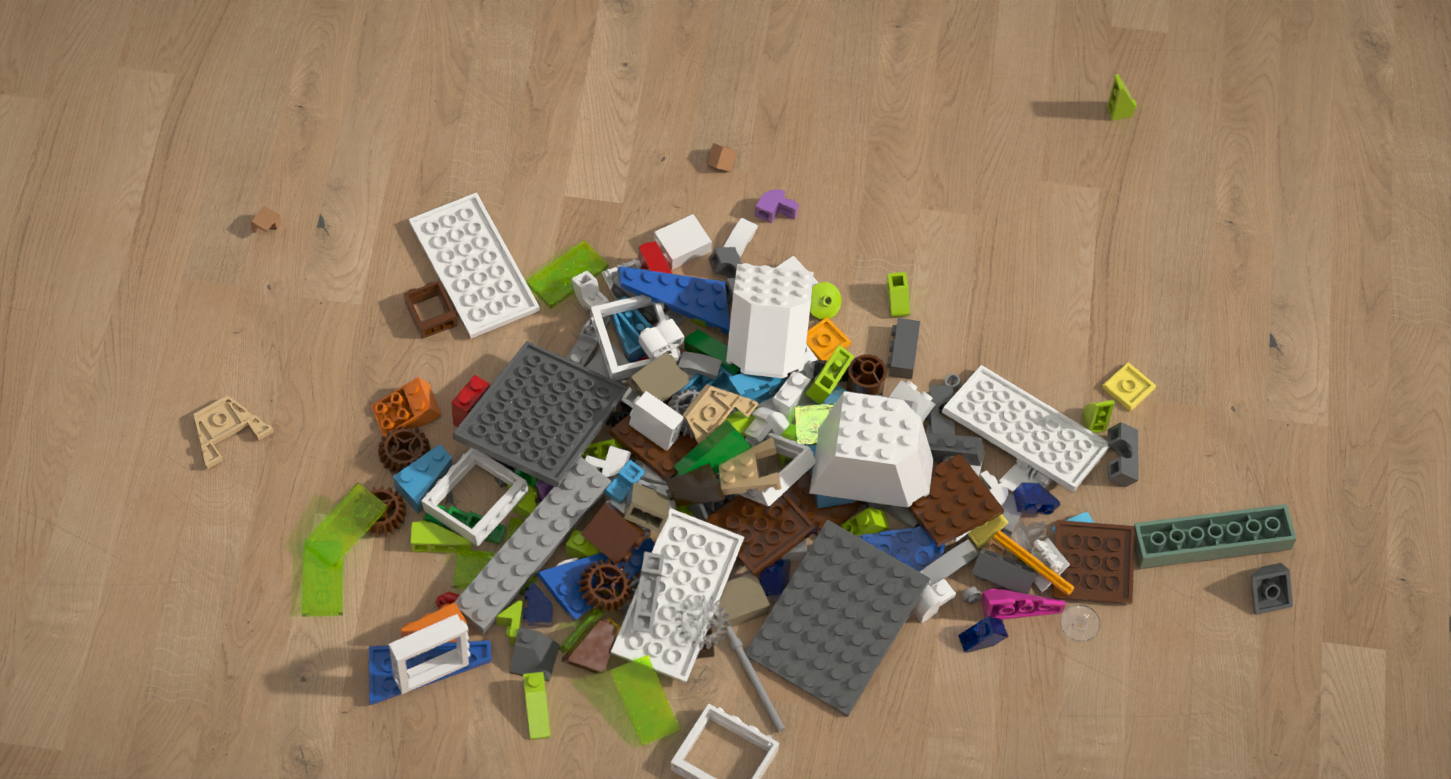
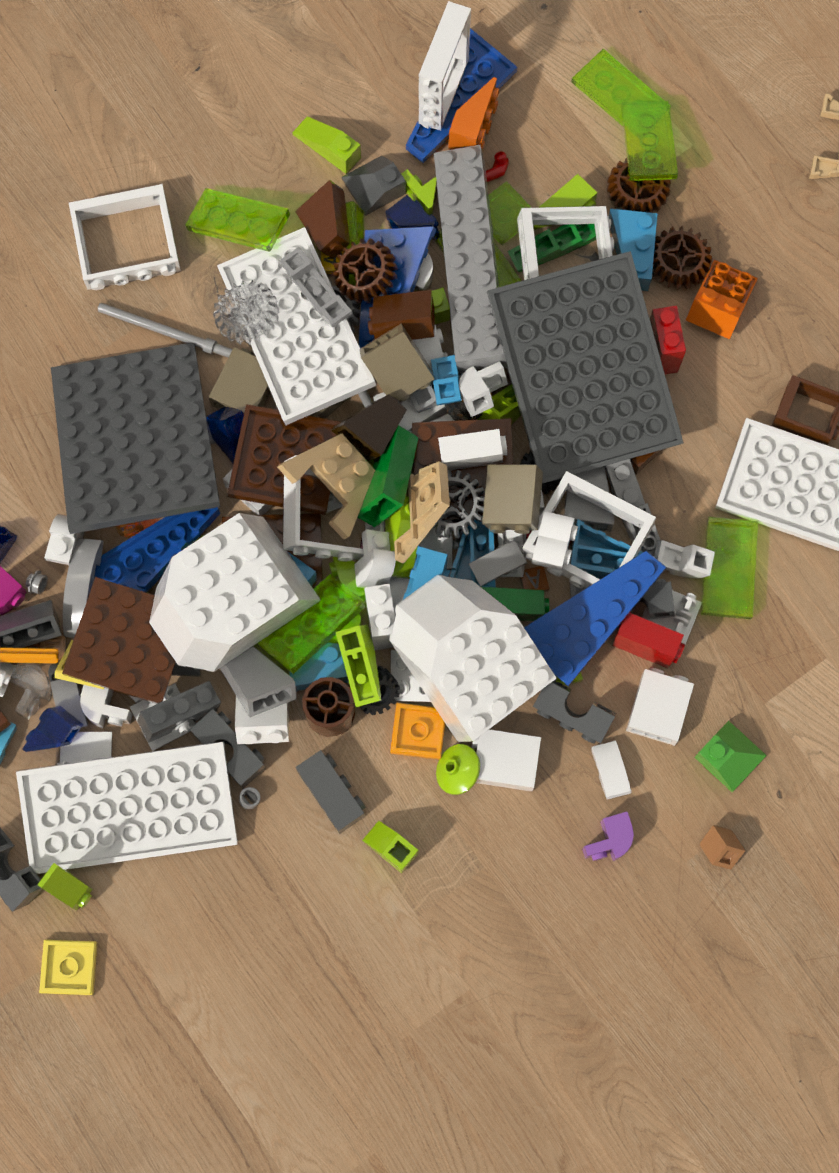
camera: 140 degrees right, 15 degrees up
(669, 194) = (730, 756): none -> bright green slope

